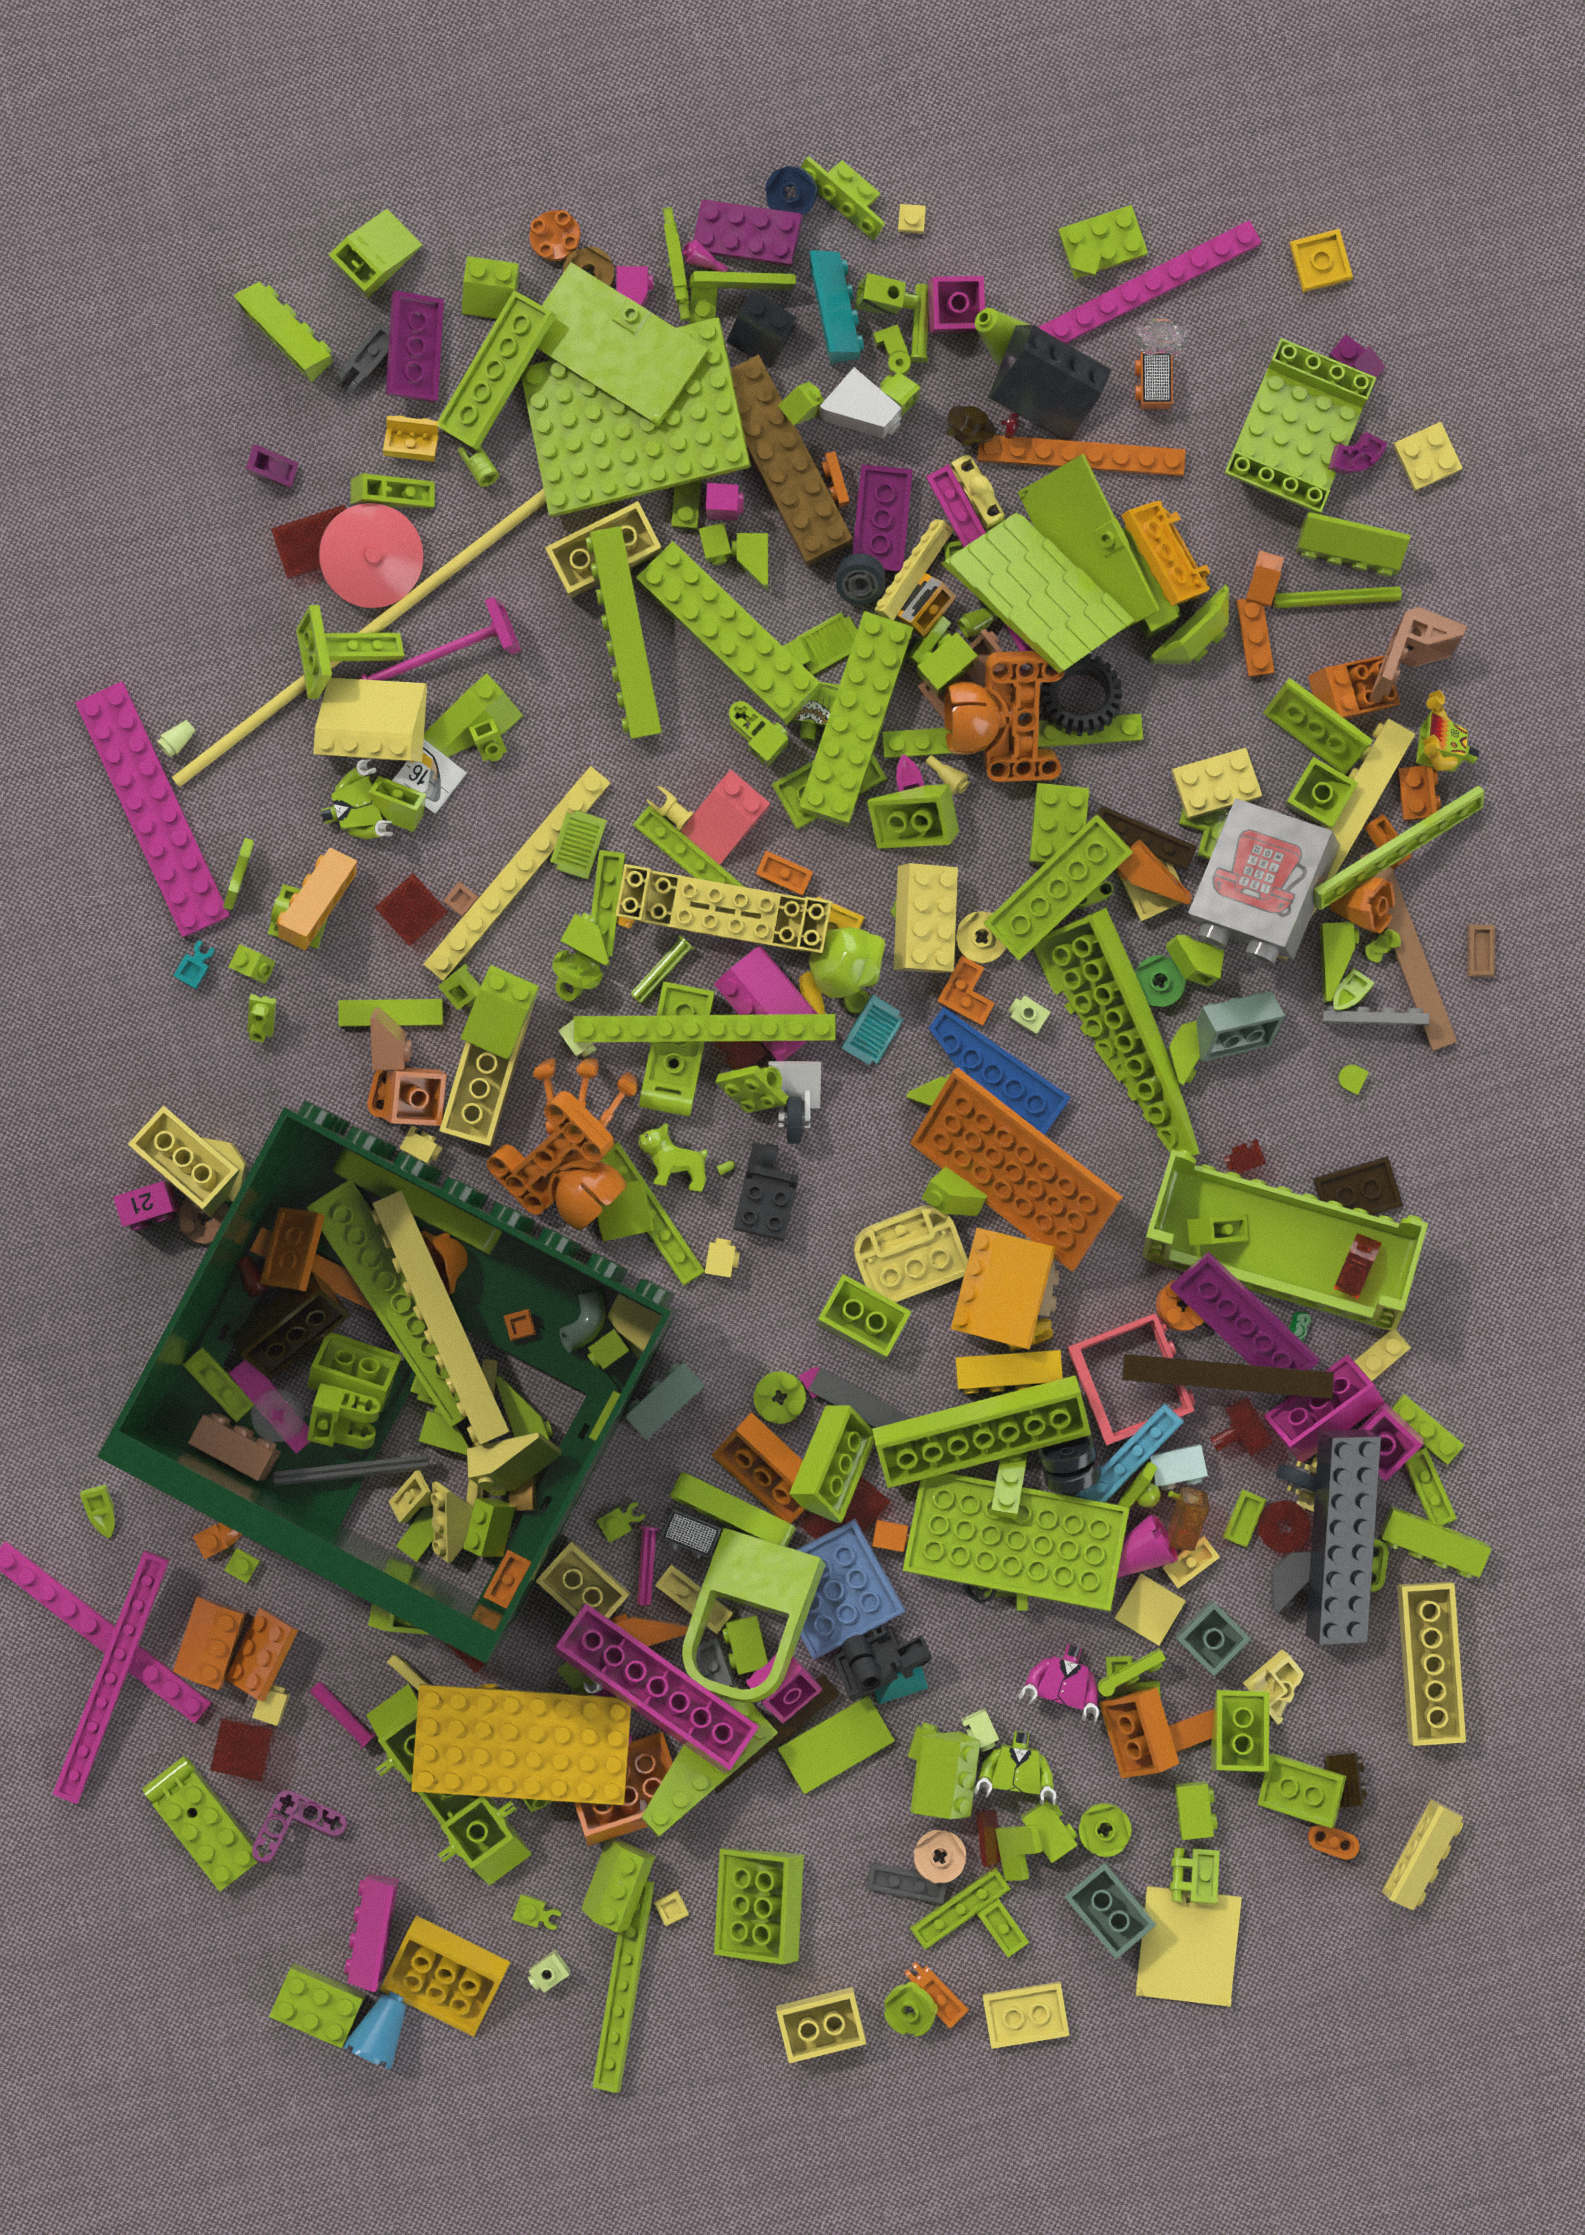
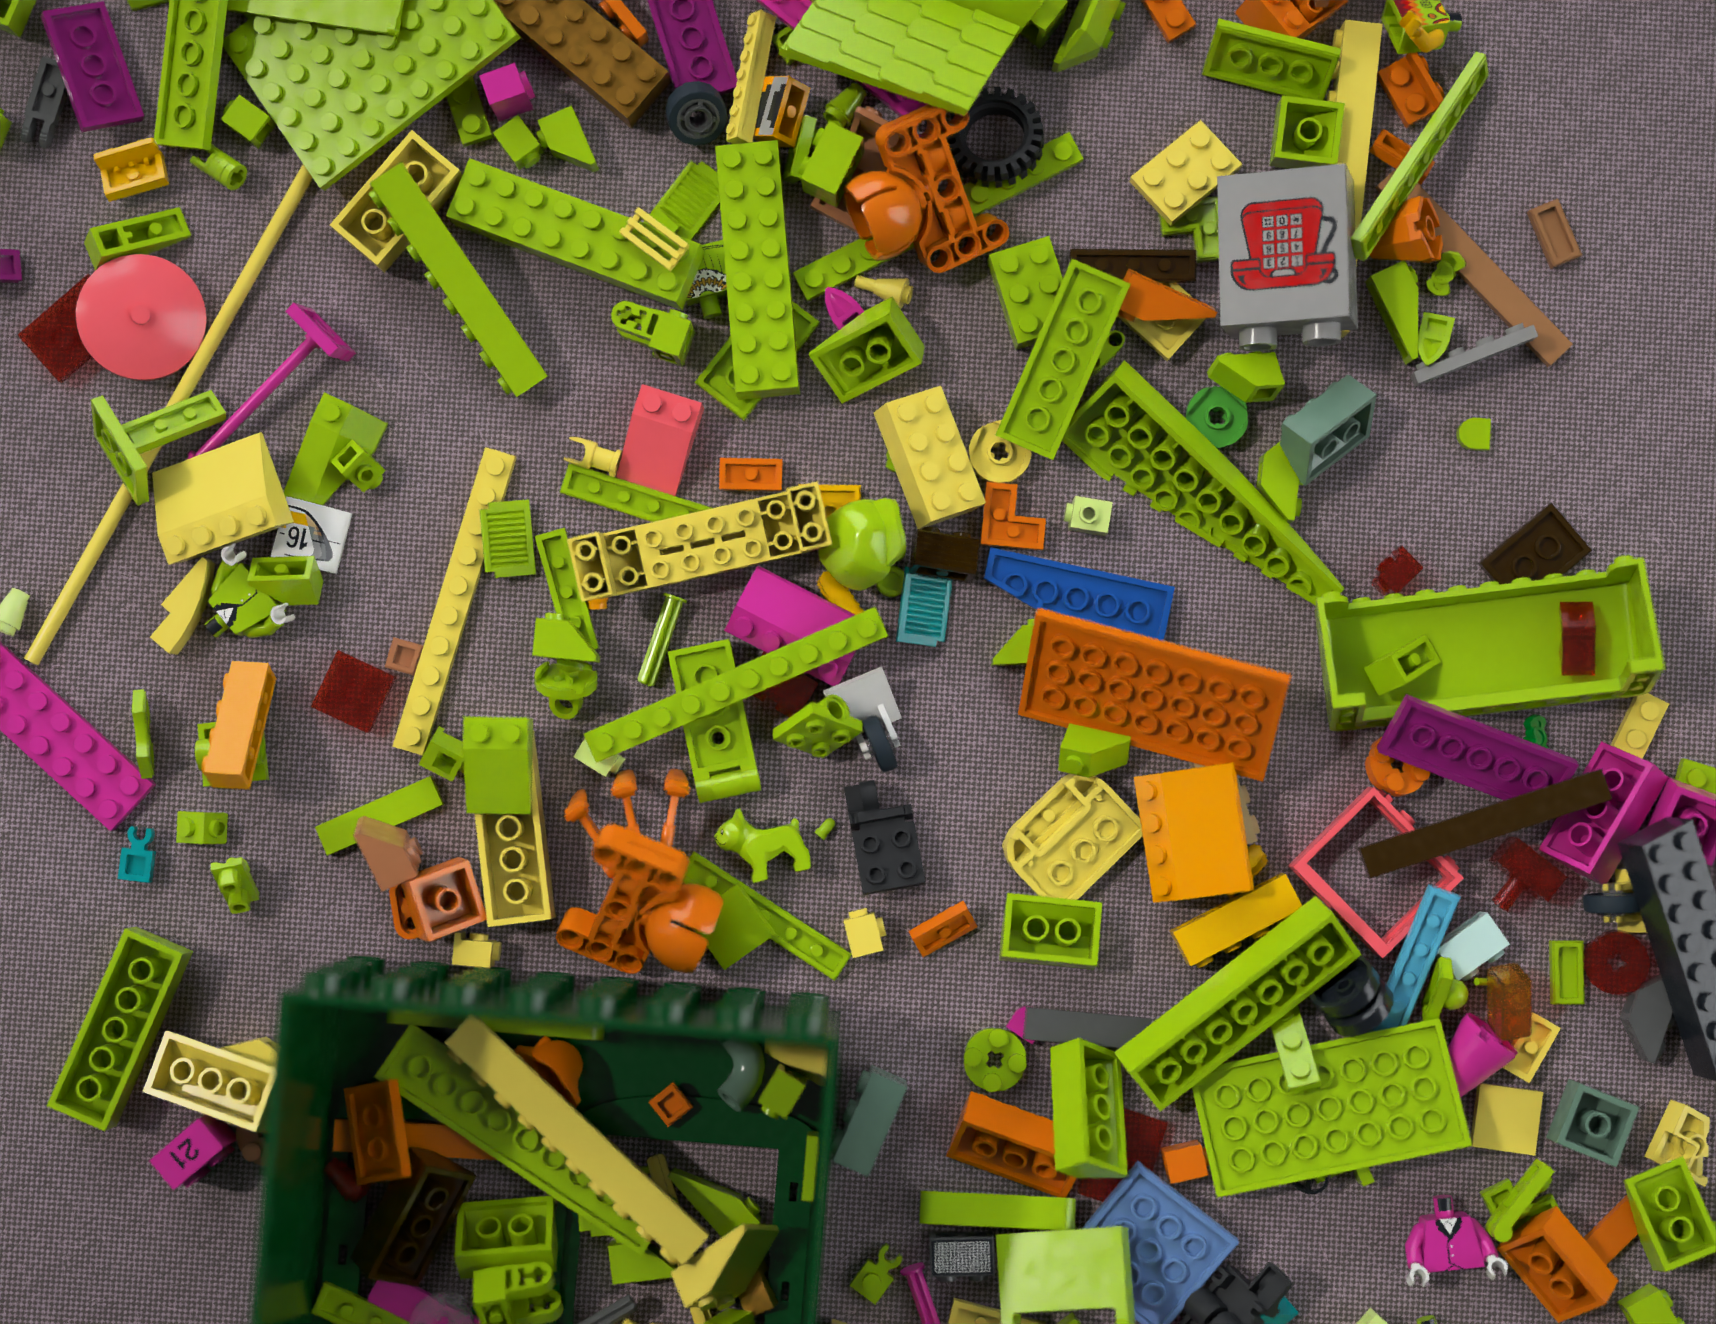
camera: 20 degrees left, 0 degrees up
(128, 1089) = (120, 1028): none -> lime brick
(311, 791) = (185, 607): none -> light yellow slope
(515, 438) = (247, 121): none -> lime brick
(776, 646) = (633, 222): none -> light yellow tile
(782, 1281) = (943, 929): none -> orange plate
(905, 997) = (944, 555): none -> dark brown brick

